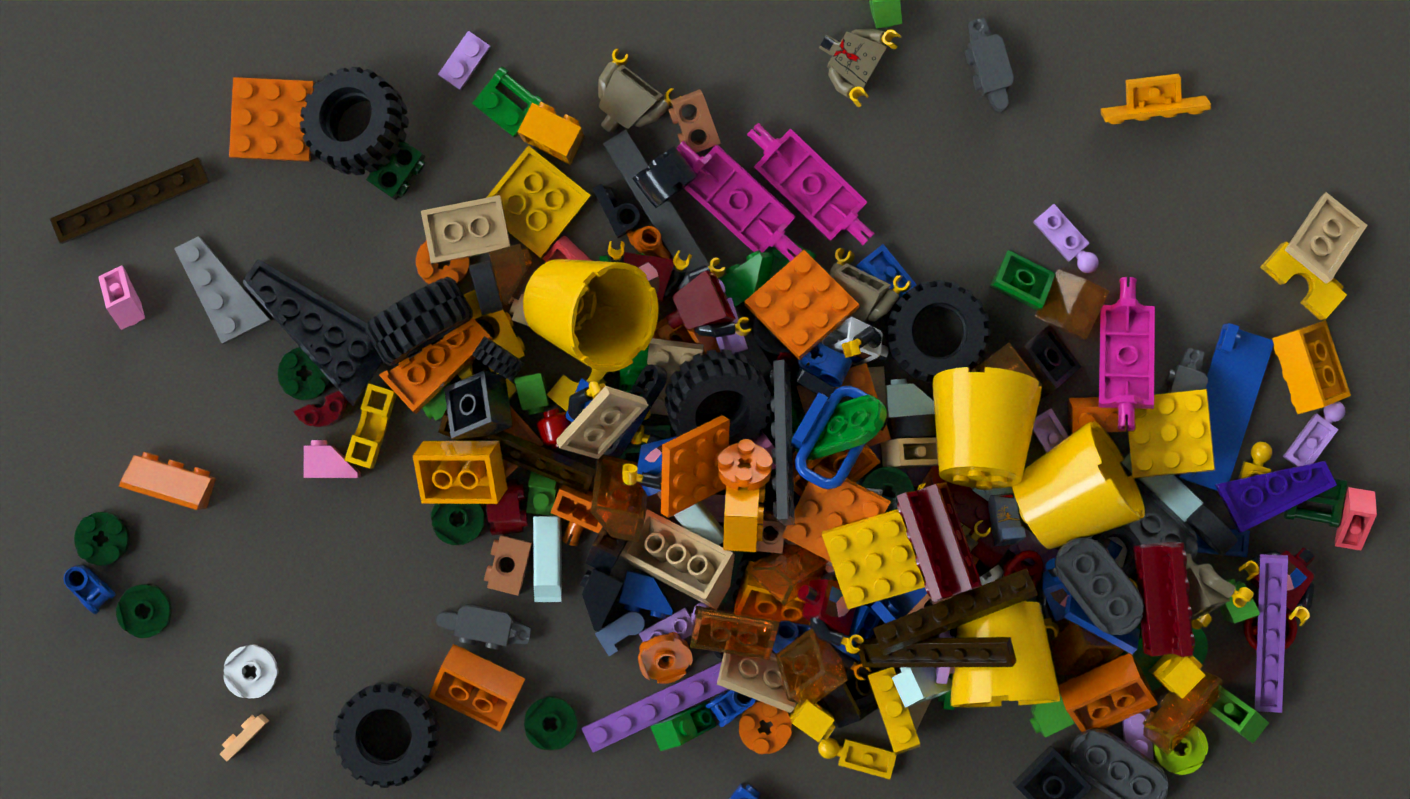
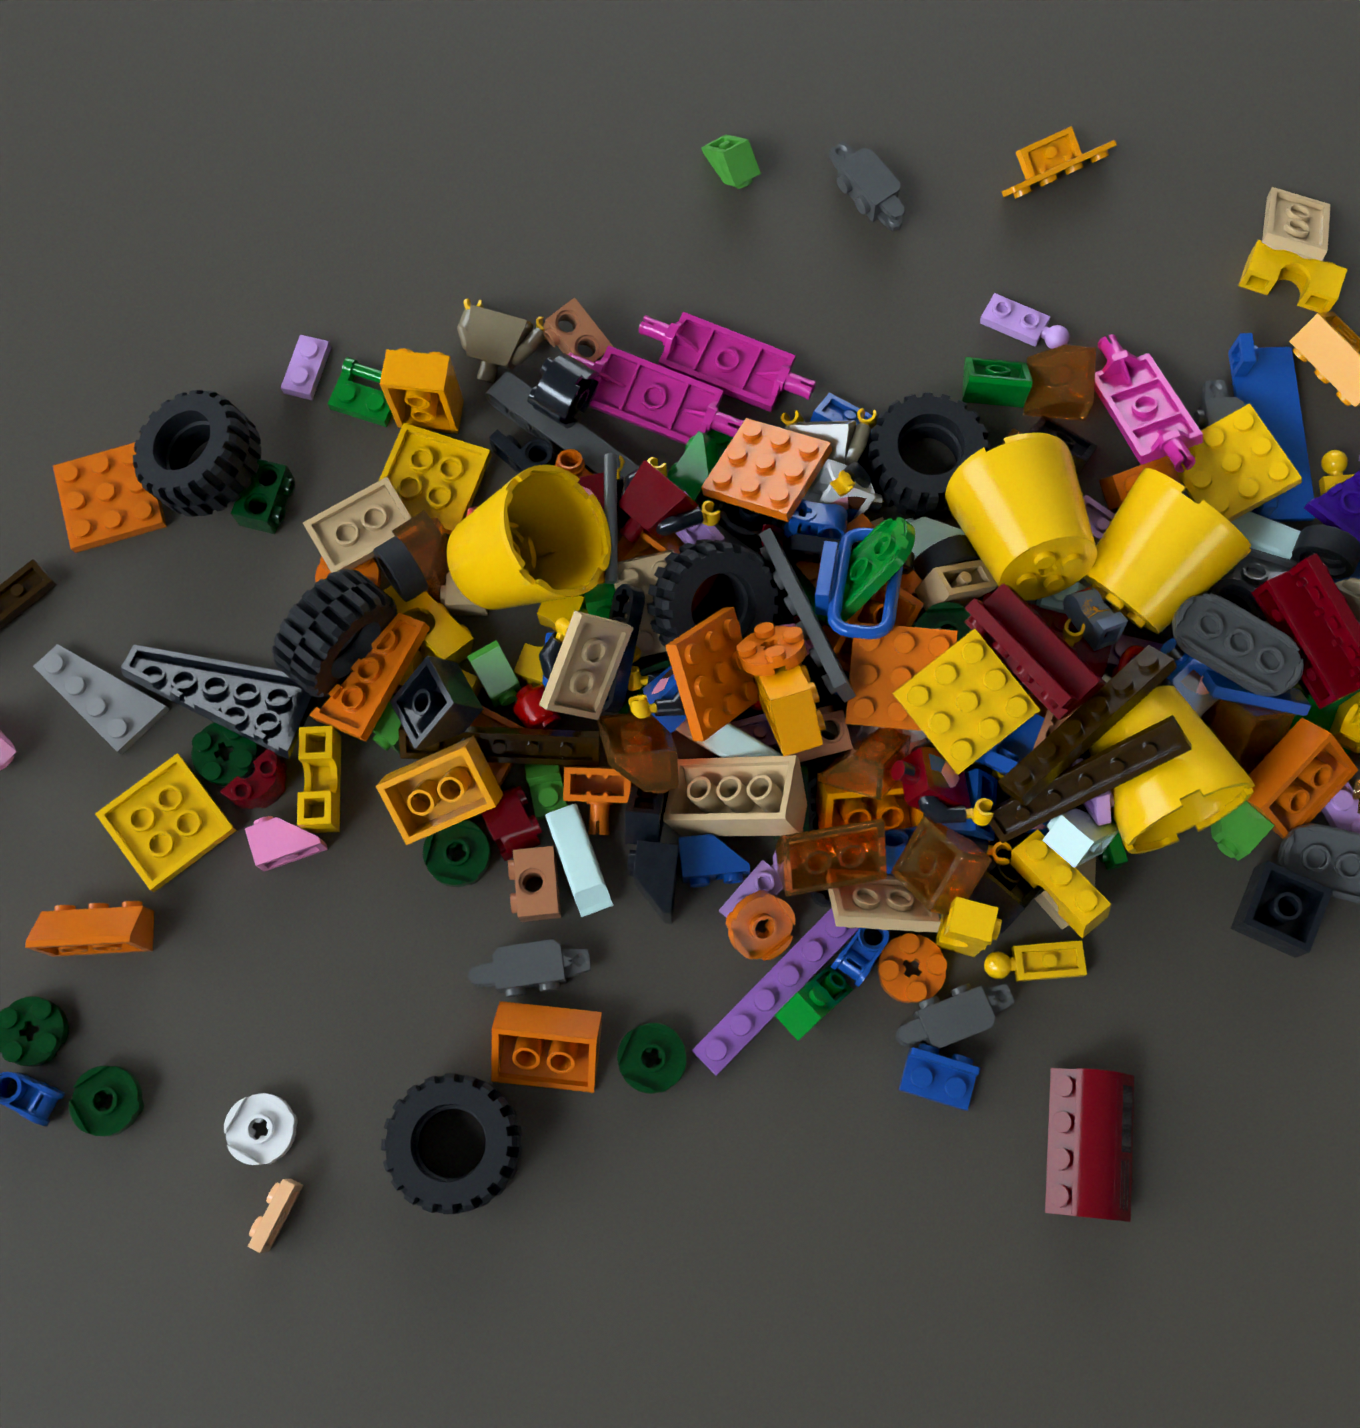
camera: 15 degrees left, 15 degrees down
(244, 414) = (165, 822): none -> yellow plate
(498, 359) = (440, 638): black tyre -> none
(627, 624) = (701, 904): sand blue leg -> none
(664, 302) = (610, 511): none -> dark grey bar
(782, 775) = (955, 1018): none -> dark grey hinge
(856, 59) = (727, 221): dark tan torso -> none

